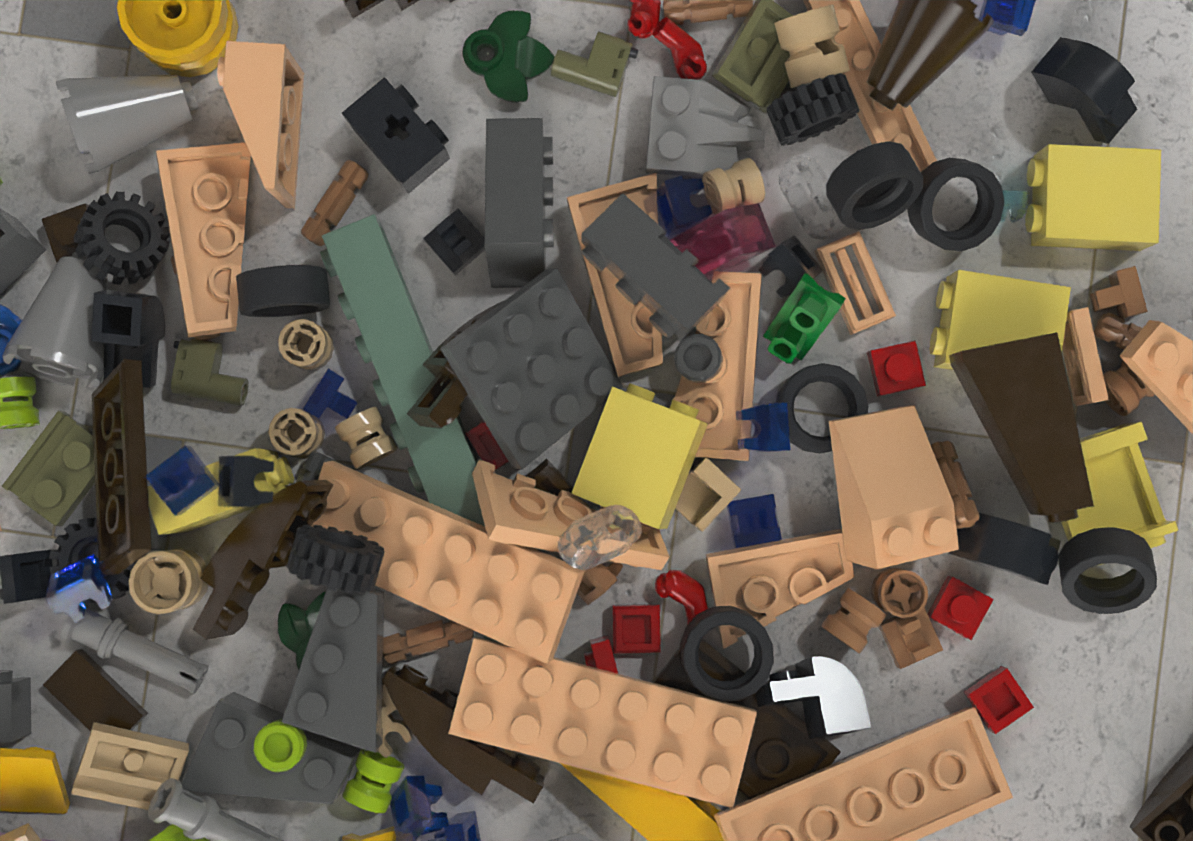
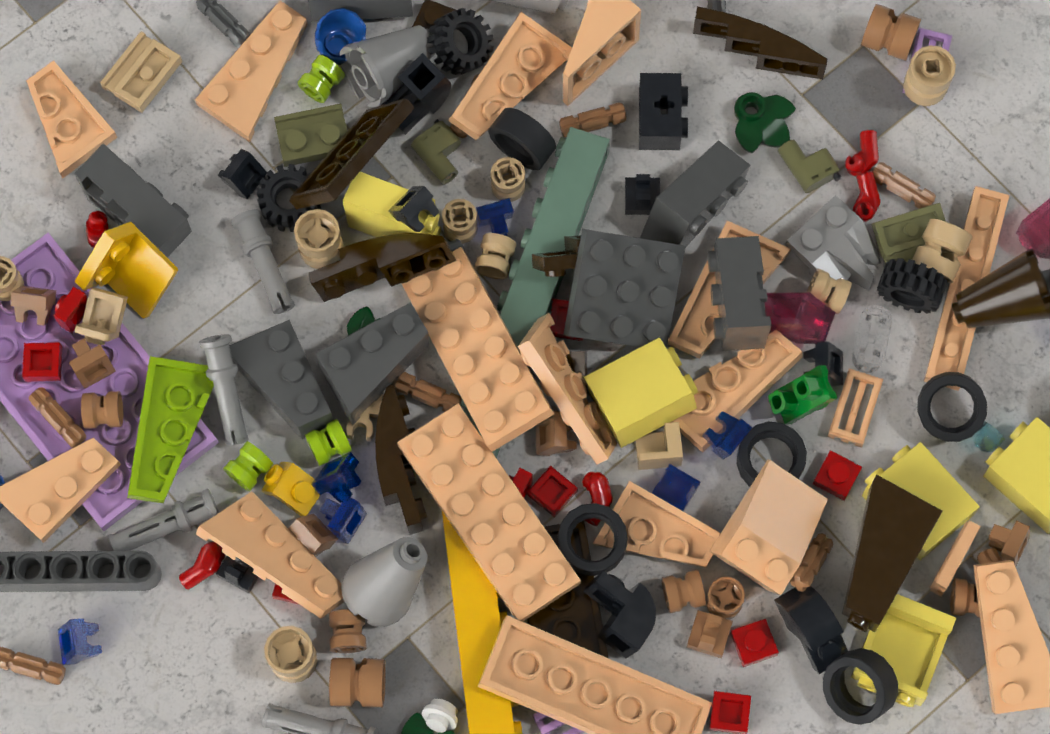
camera: 50 degrees right, 15 degrees down
(76, 584) = (269, 194): clear blue tile -> none
(93, 694) = (217, 271): dark brown tile -> none
(127, 765) = (202, 314): tan plate -> none
(182, 480) = (381, 182): clear blue tile -> none
(280, 746) = (301, 367): lime tile -> none
(335, 559) = (424, 292): black tyre -> none
(605, 544) = (579, 403): clear beam -> none
(676, 207) = (788, 272): clear blue tile -> none
(698, 358) = (723, 367): dark grey tile -> none
(880, 164) = (914, 333): black tyre -> none

